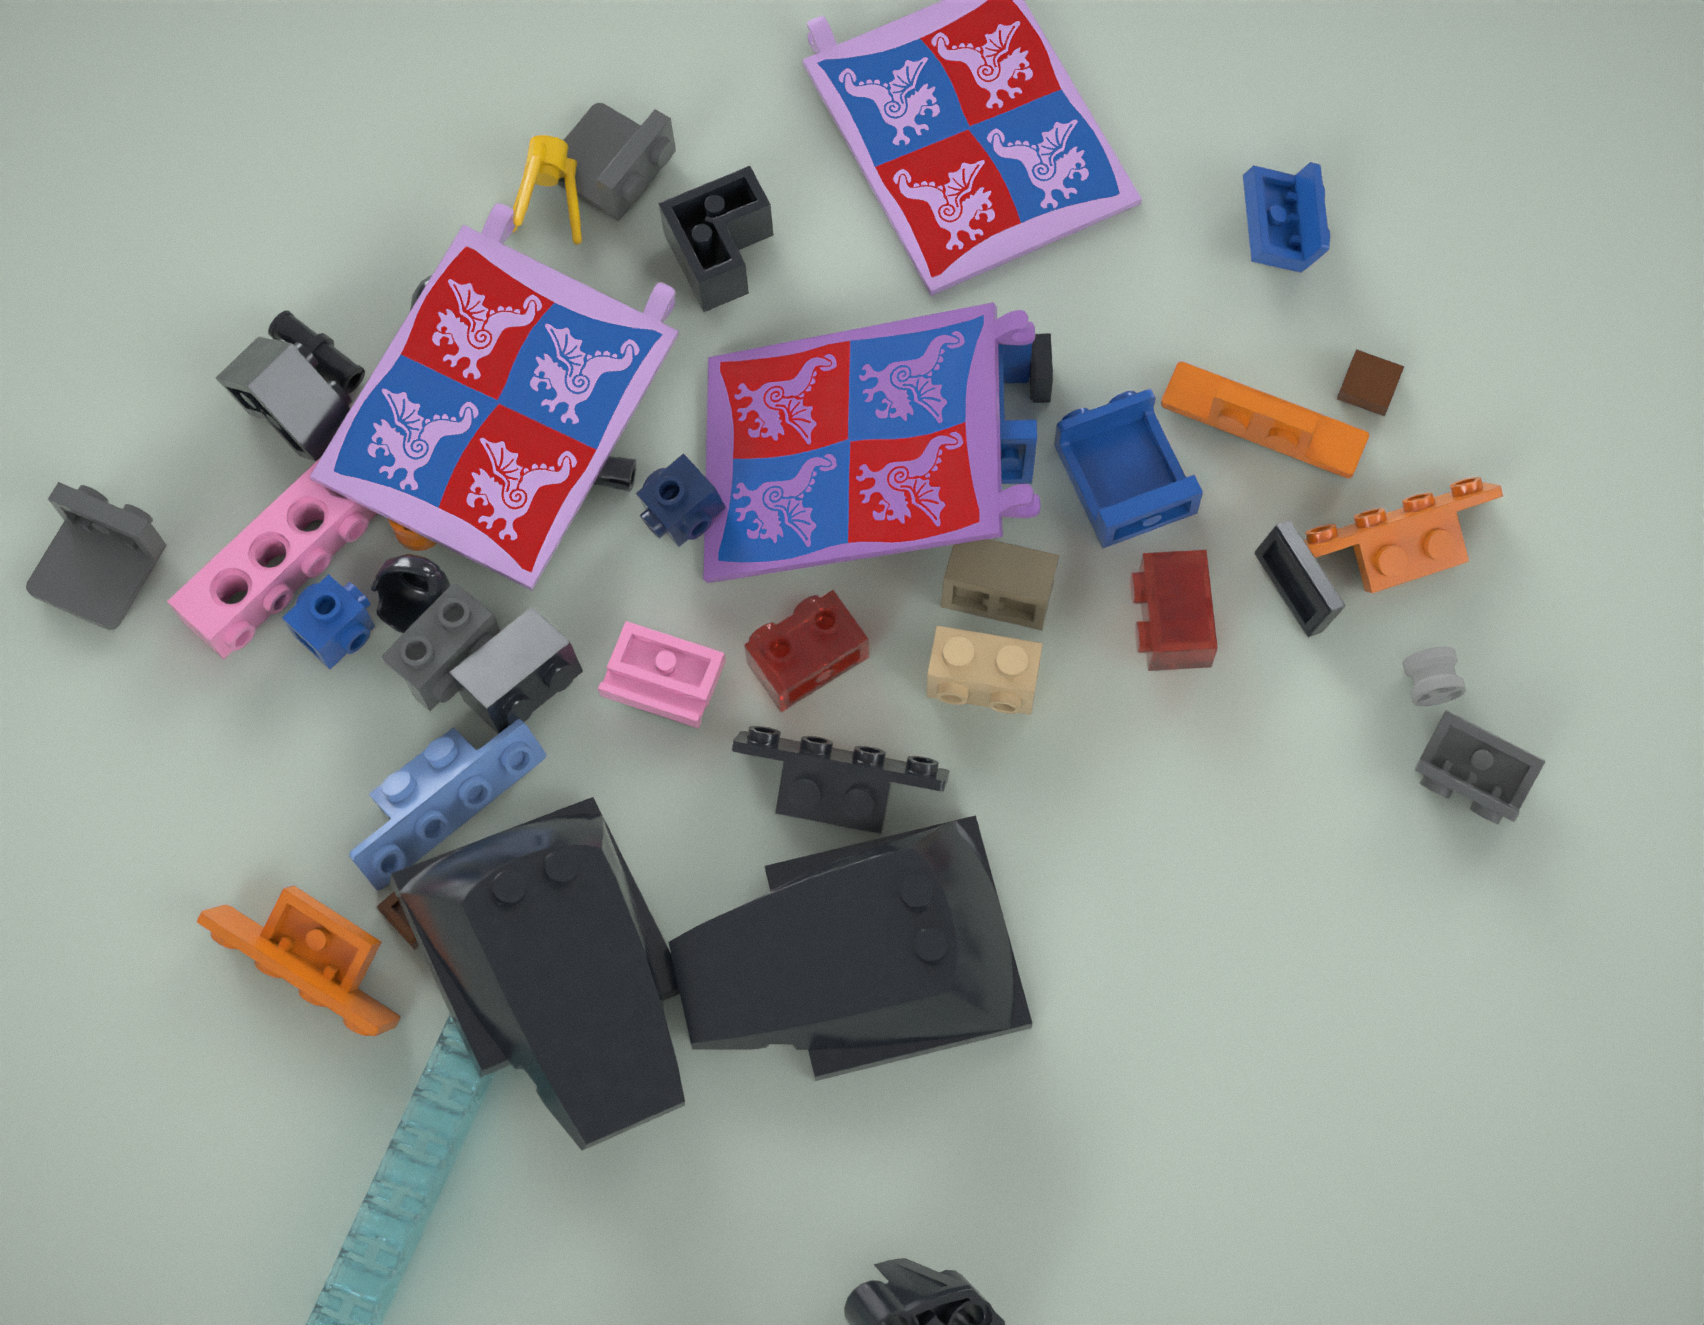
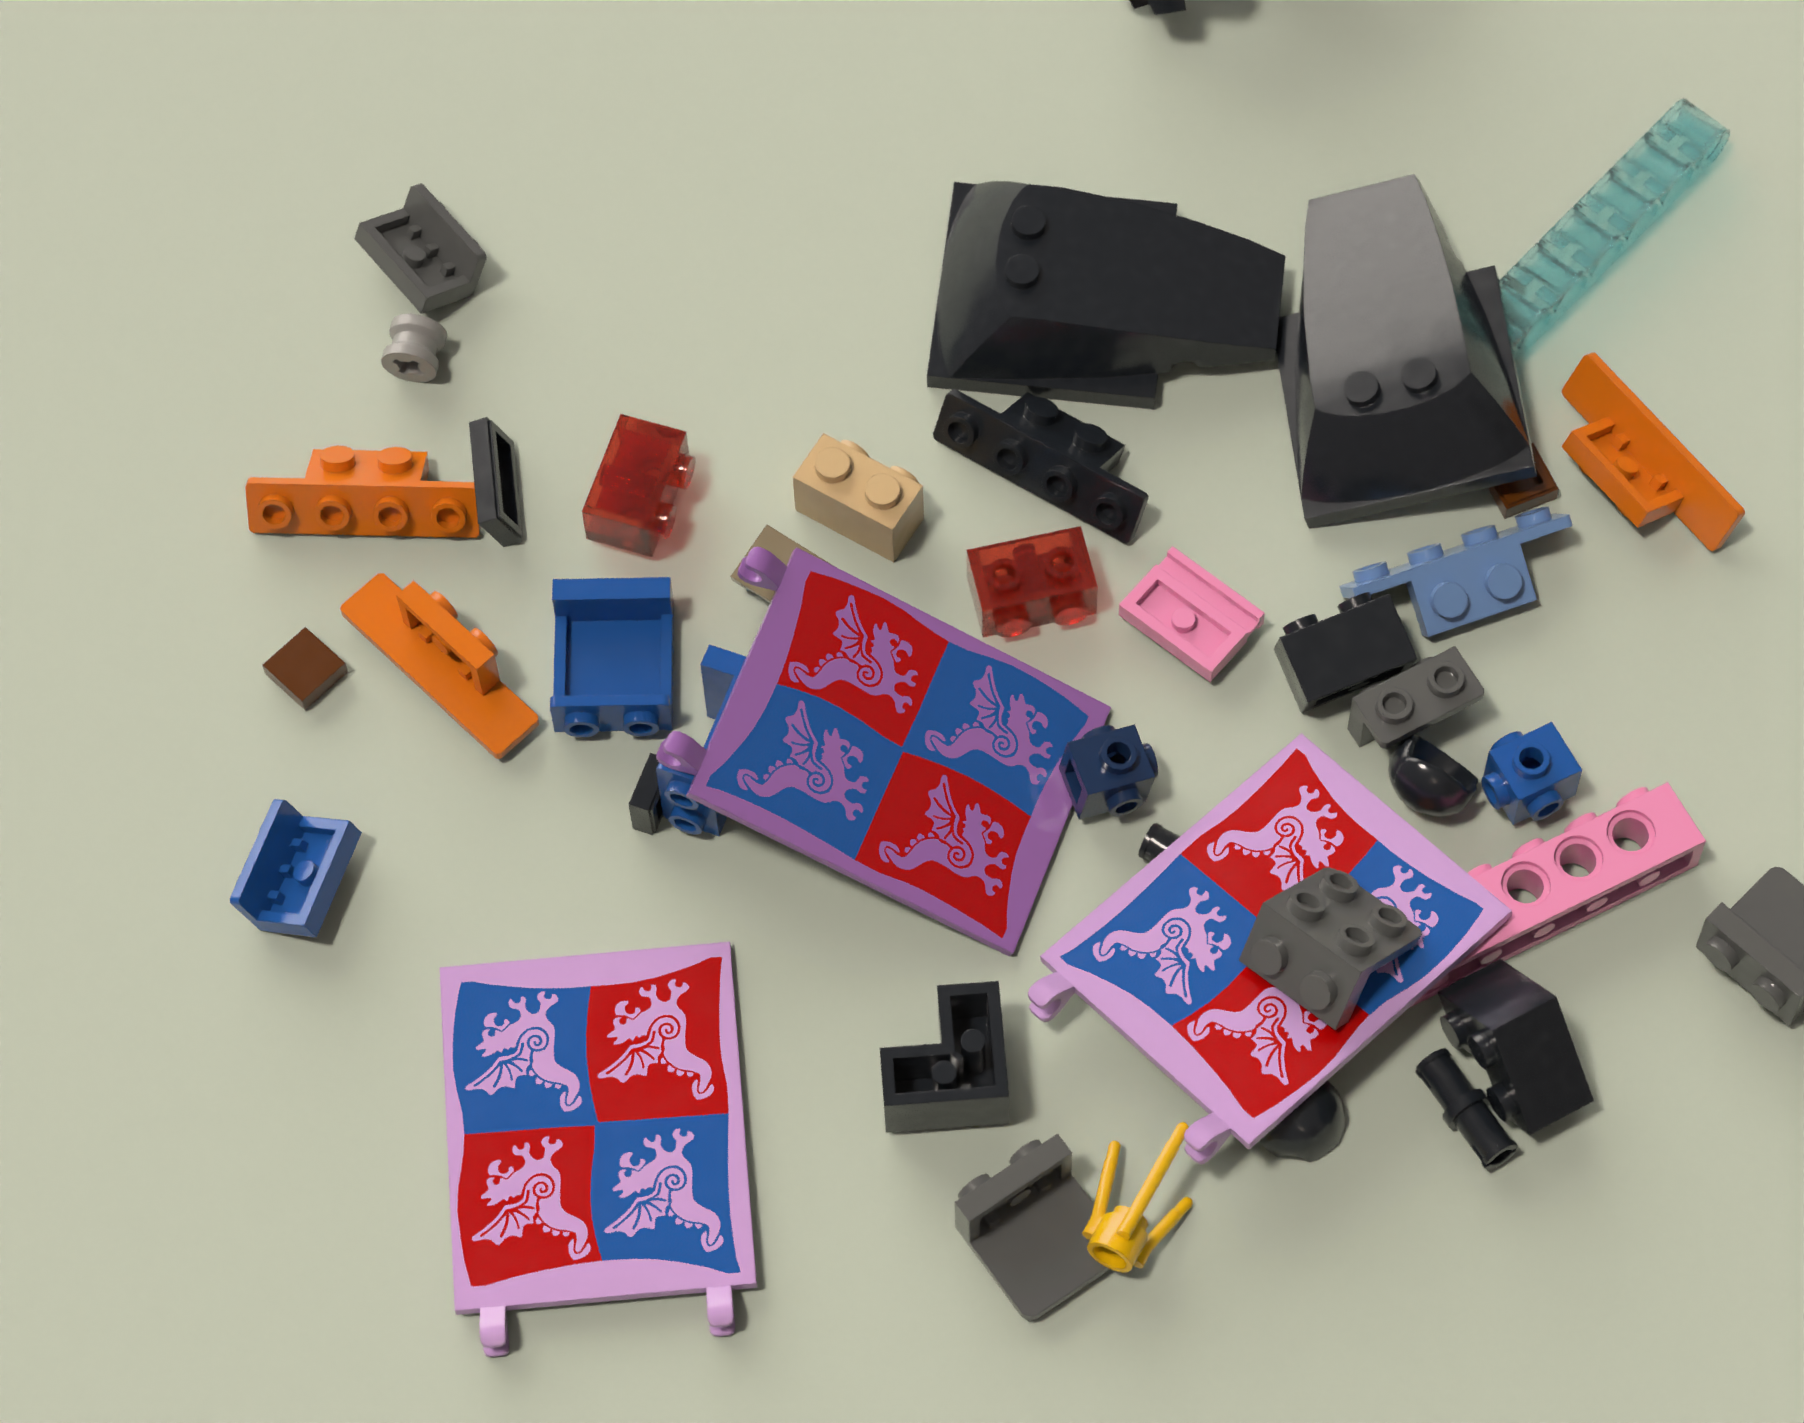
camera: 160 degrees left, 5 degrees down
(441, 391) = (1325, 942): none -> dark grey bracket

